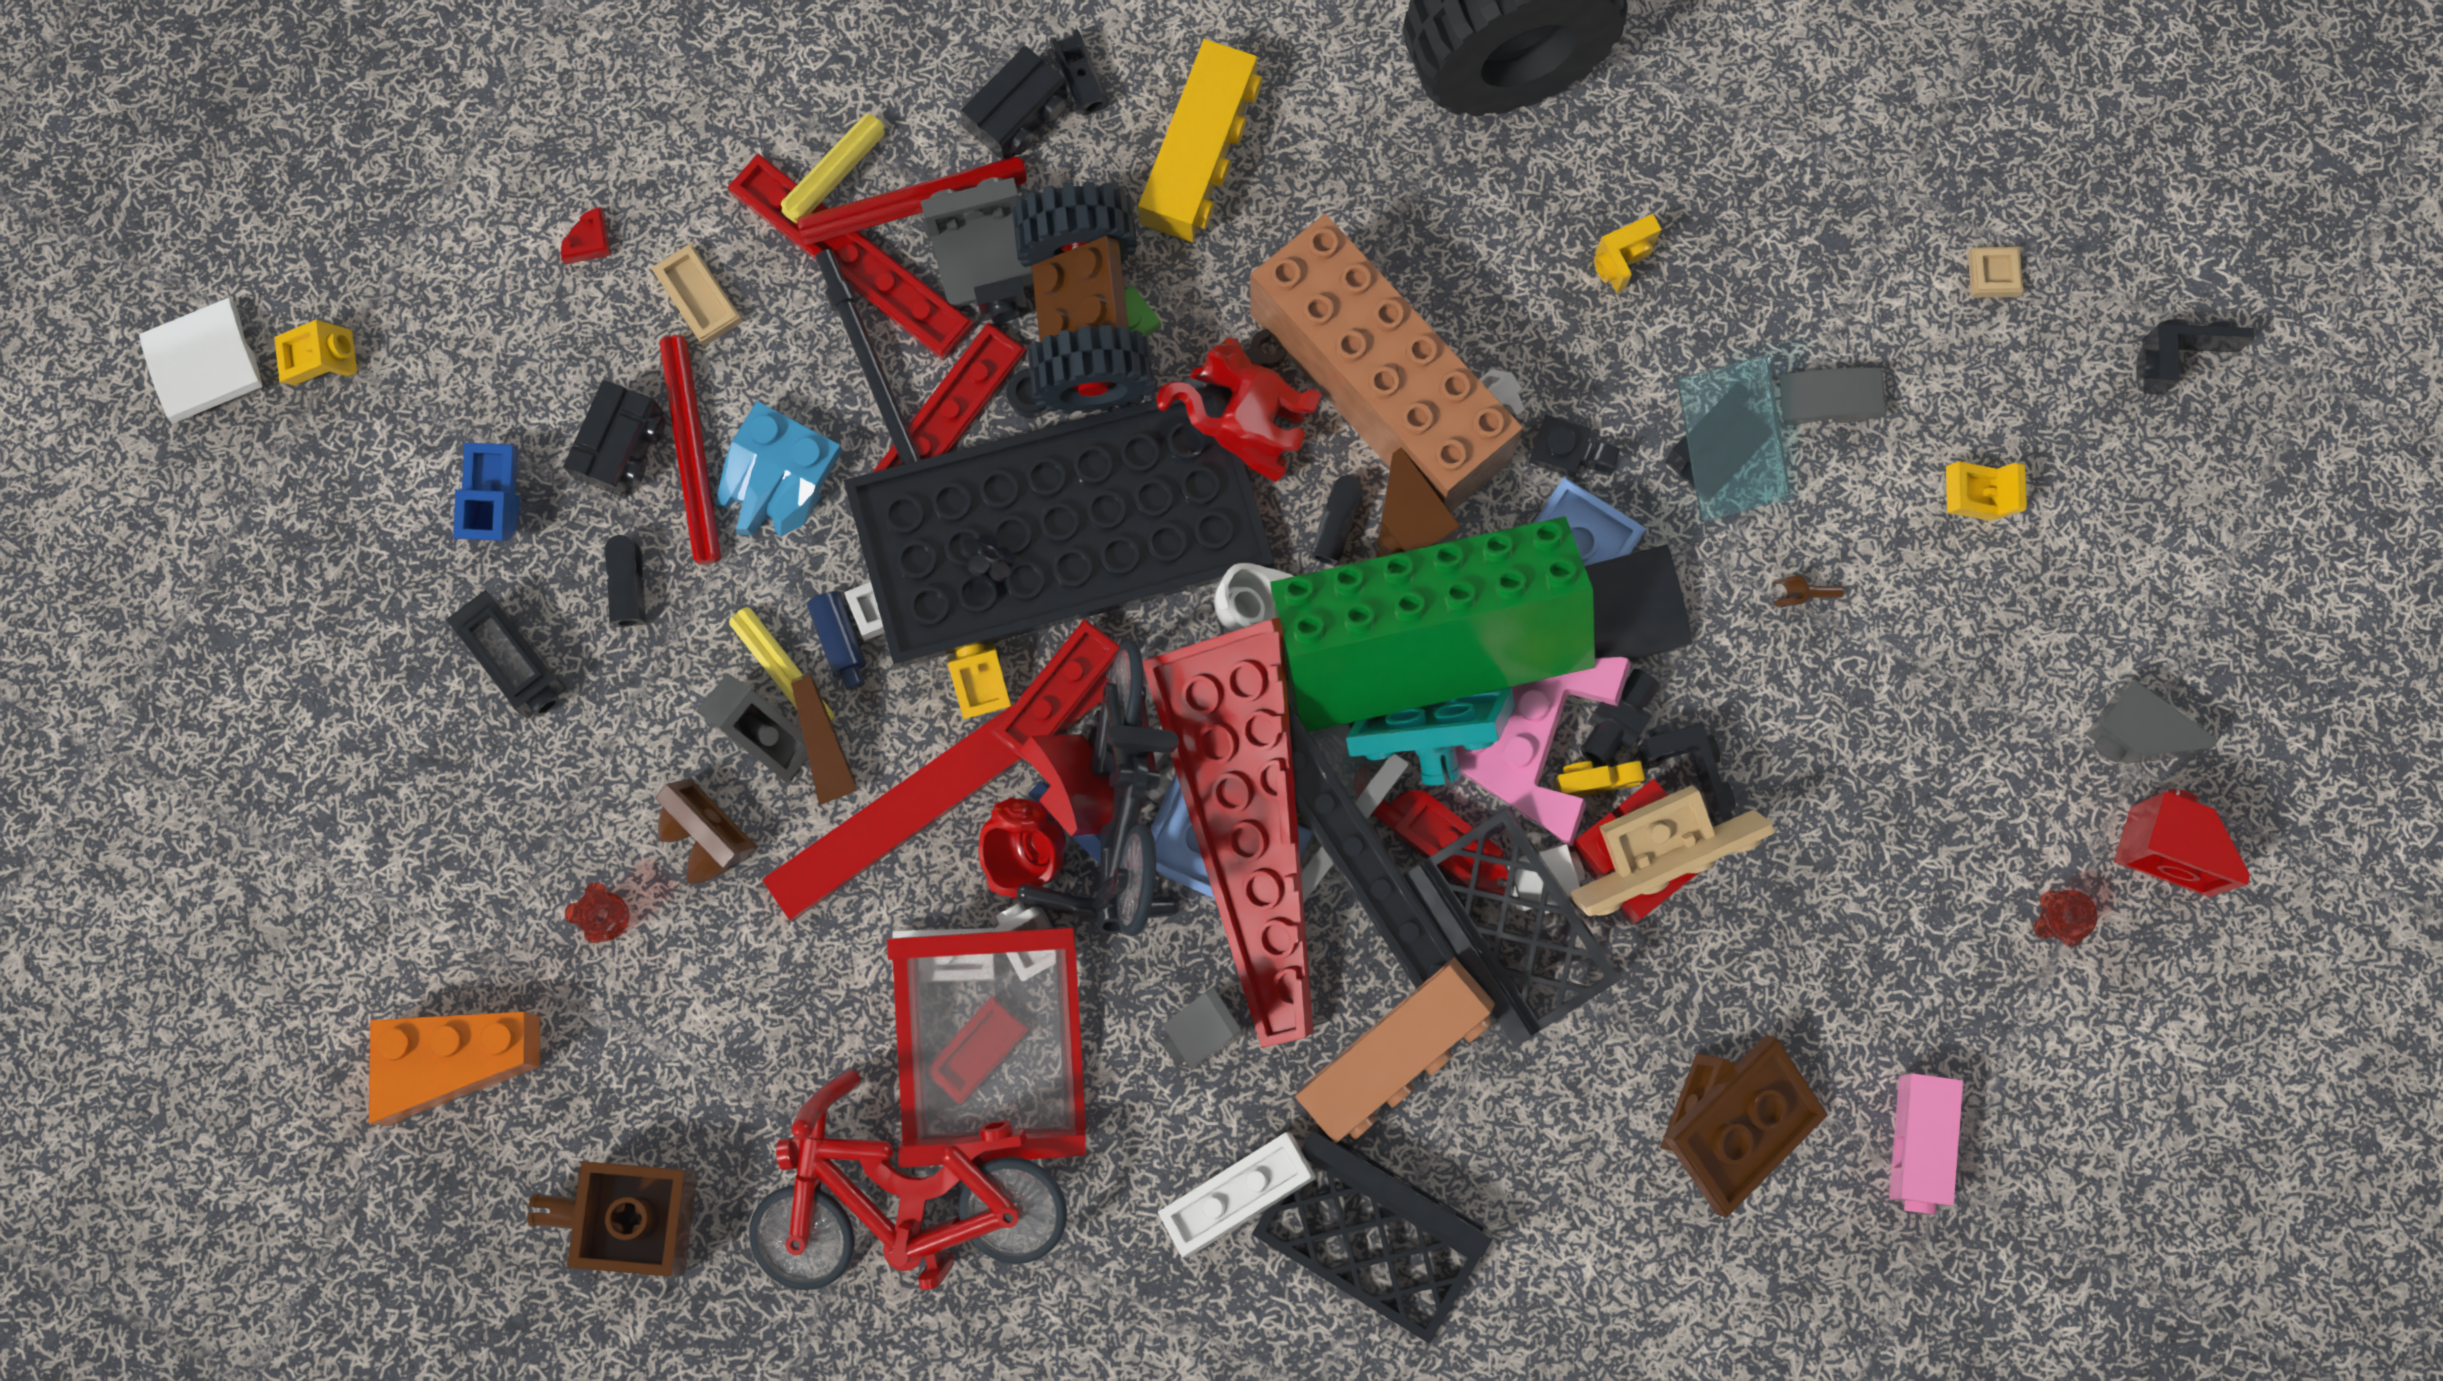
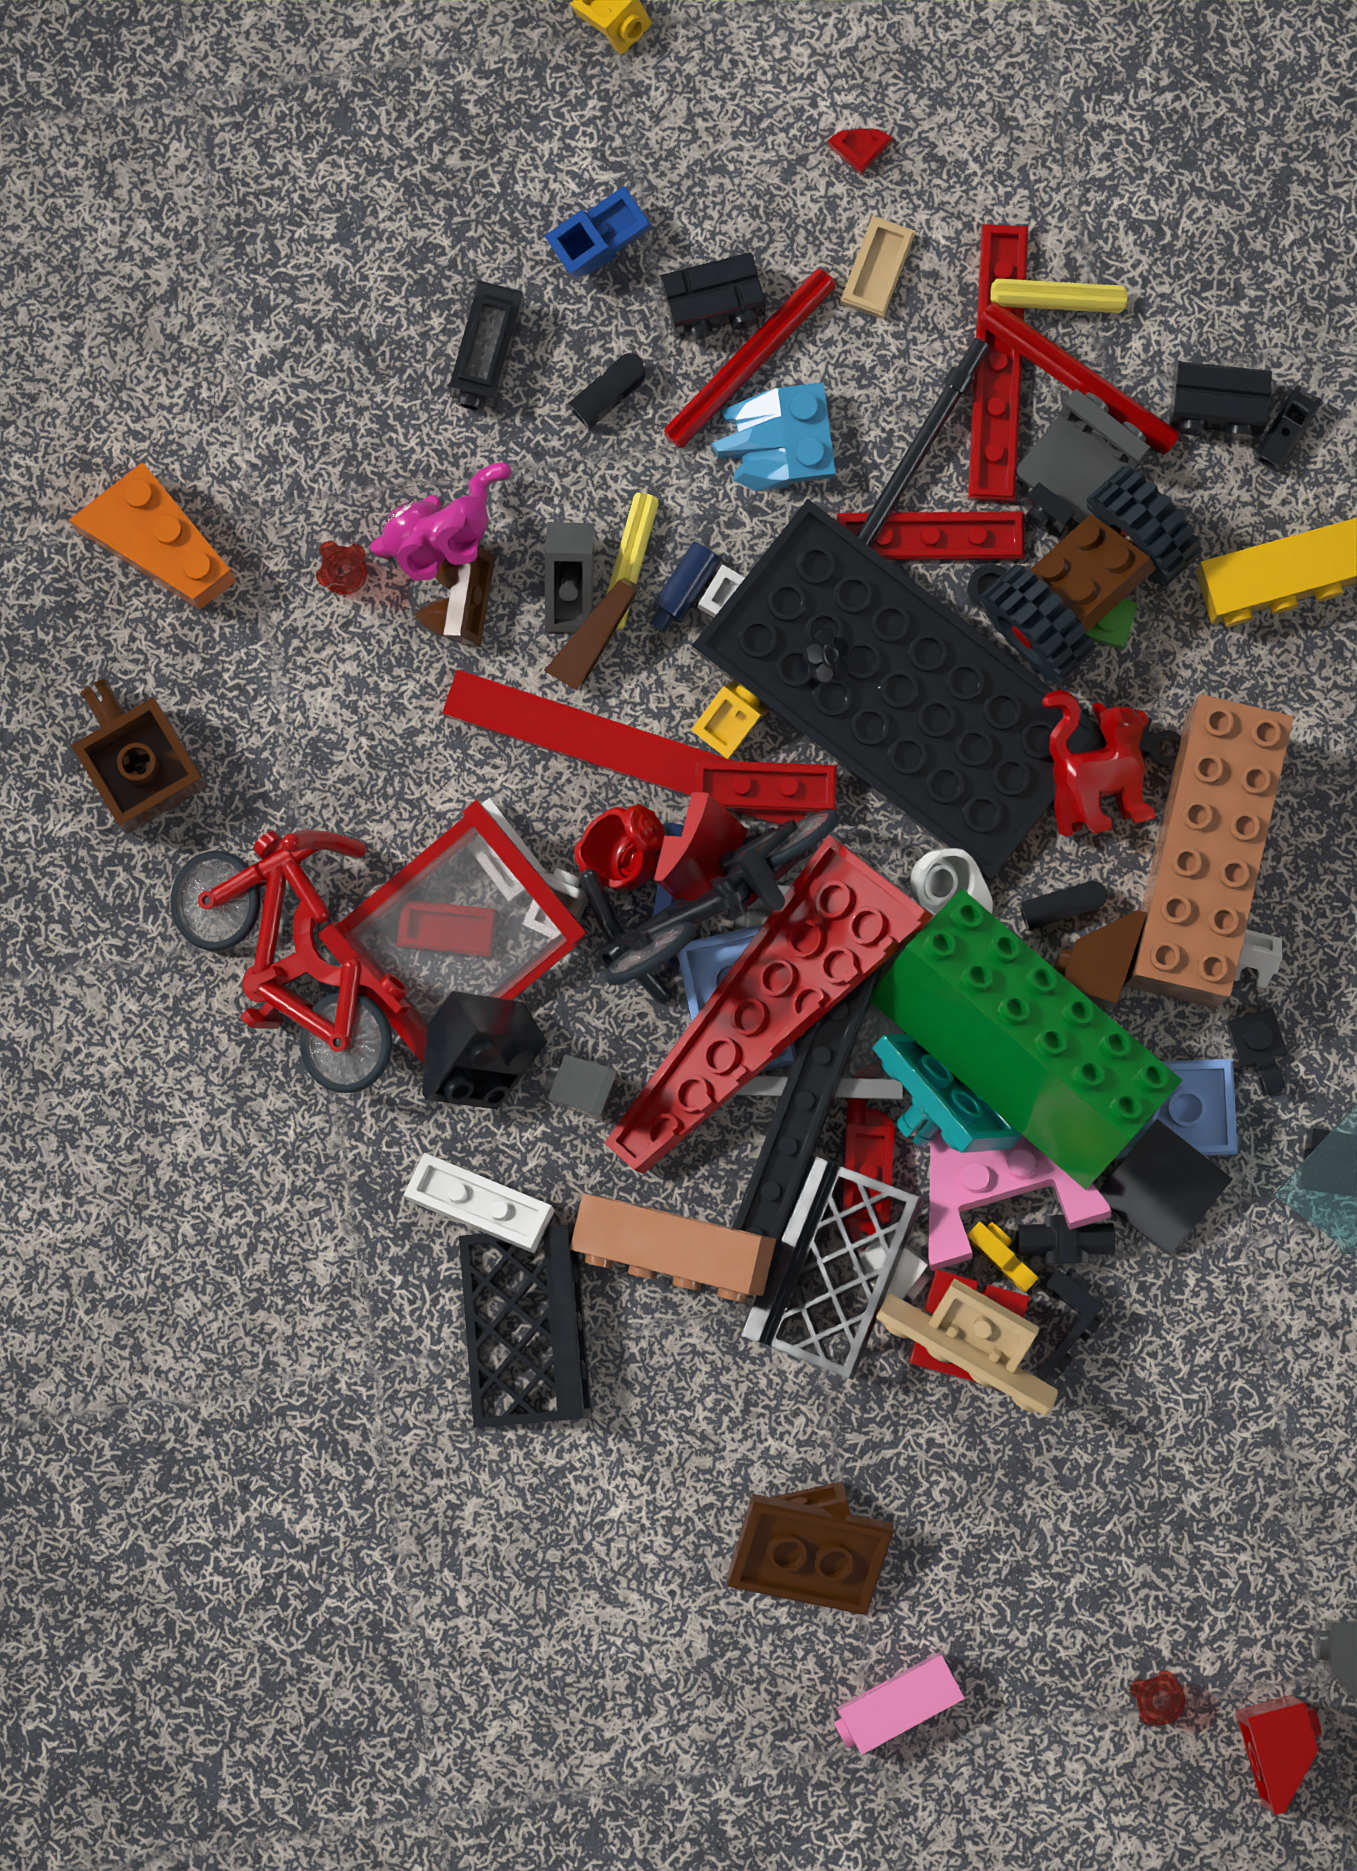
camera: 55 degrees right, 5 degrees up
(627, 820) = (426, 533): none -> dark pink animal
(1104, 1097) = (478, 1050): none -> black slope
(1800, 591) = (1275, 1313): reddish brown hand -> none

